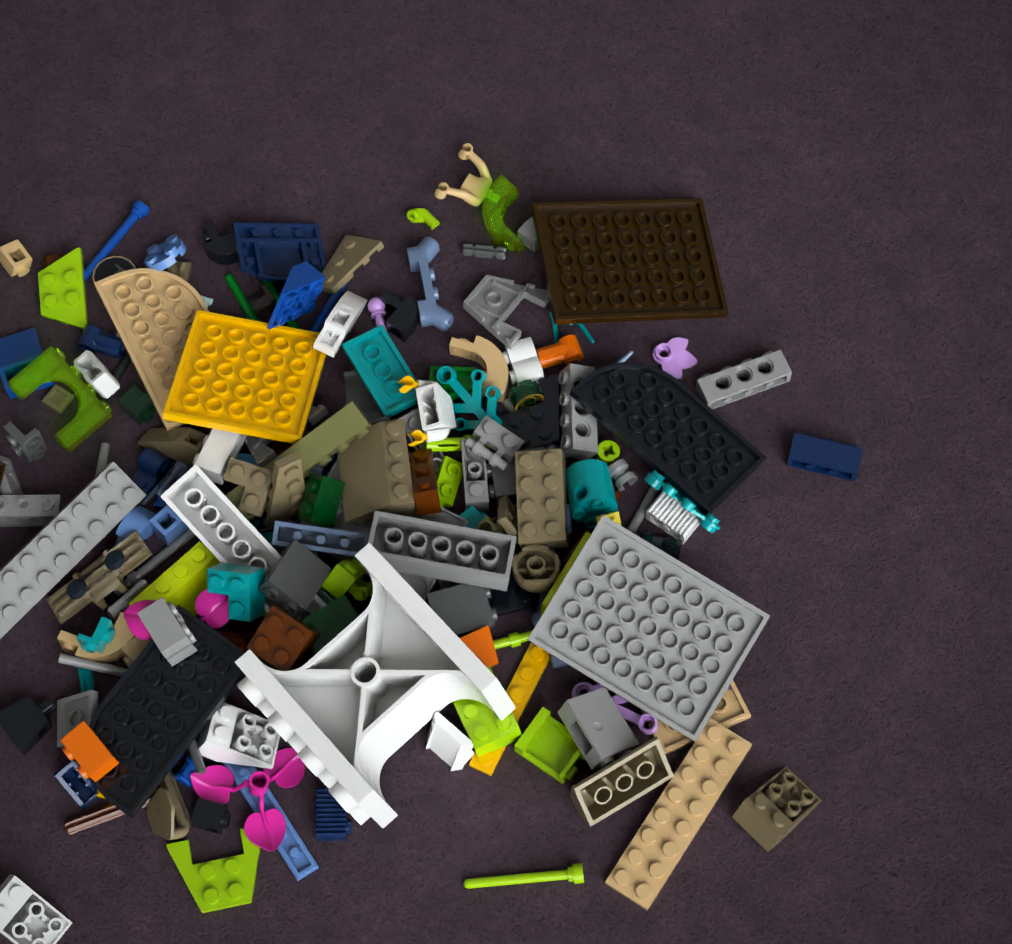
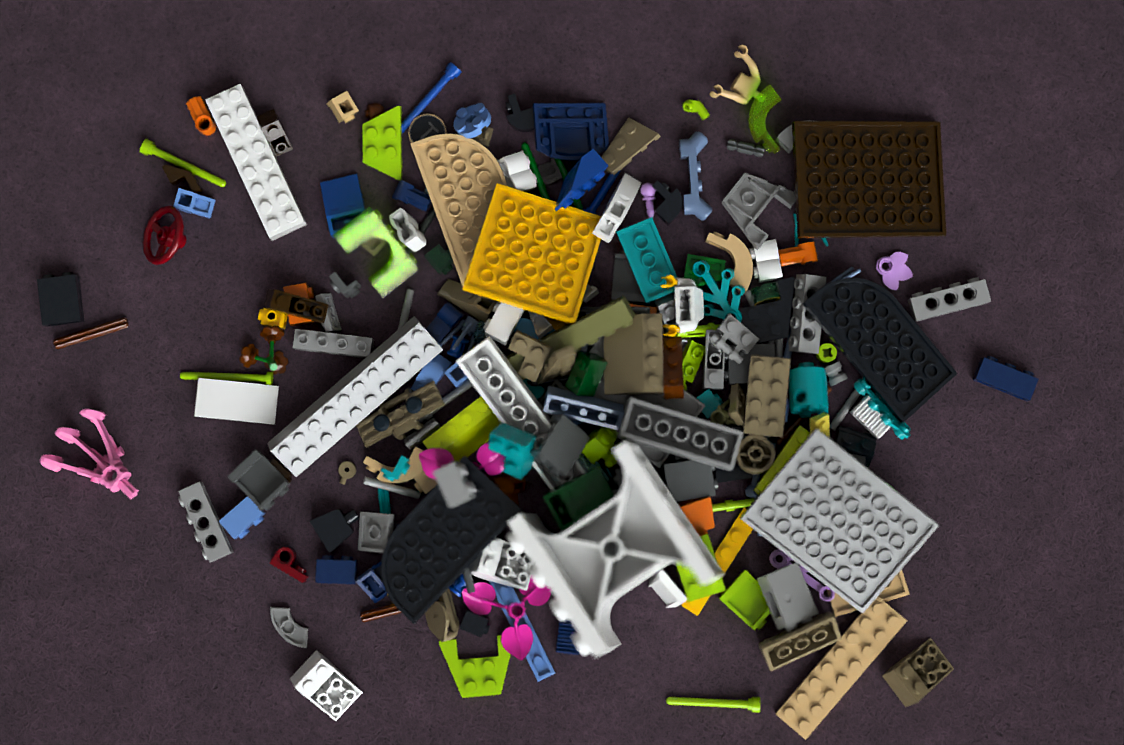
camera: 10 degrees right, 20 degrees up
(30, 772) = (336, 571): none -> dark blue brick
(38, 660) = (346, 475): none -> dark tan piece
(89, 752) = (385, 570): orange brick -> none
(222, 299) = (517, 171): none -> white brick
(283, 639) = (547, 504): reddish brown brick -> none

